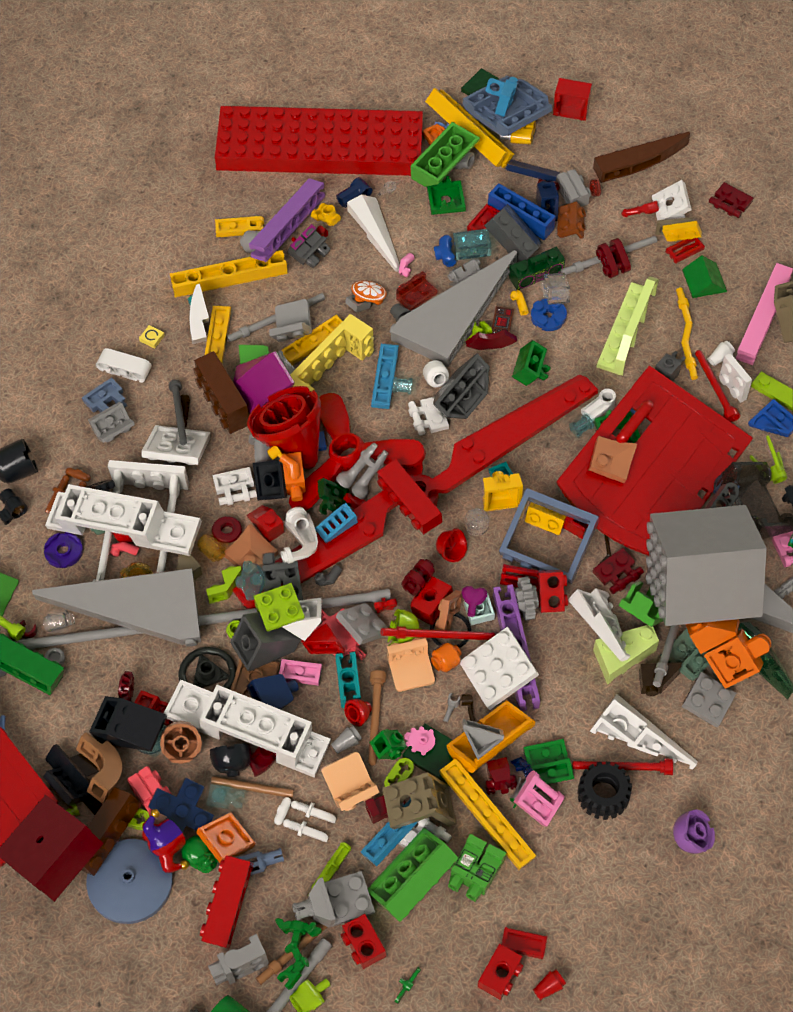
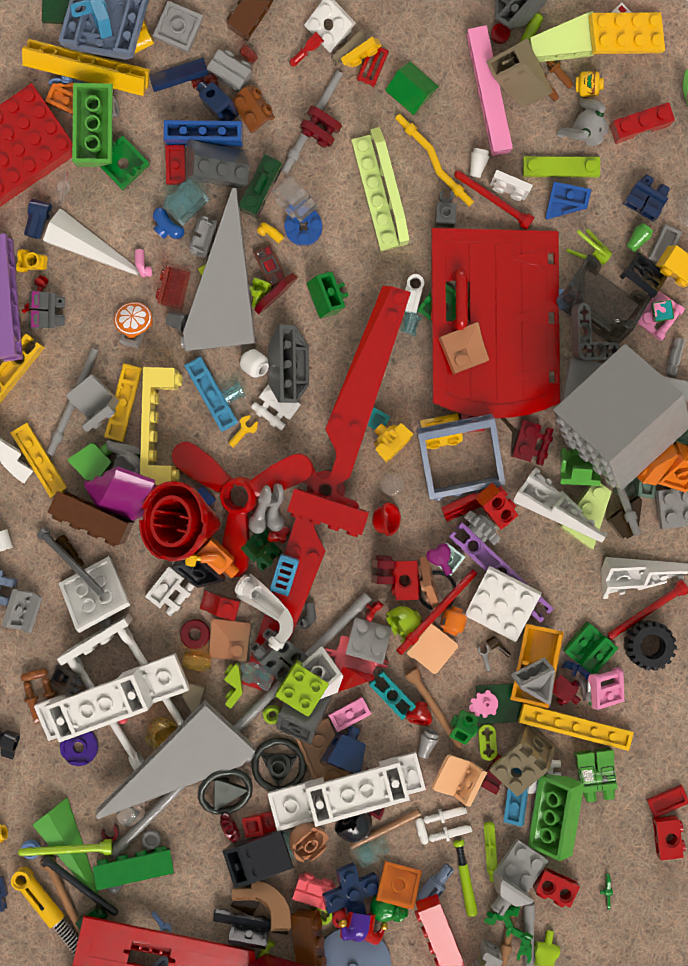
camera: 35 degrees left, 30 degrees up
(148, 655) = (225, 791): none -> pearl dark grey piece
(283, 886) = (467, 889): none -> lime piece
(389, 416) = (244, 429): none -> yellow bar
(556, 144) = (178, 26): none -> light grey plate

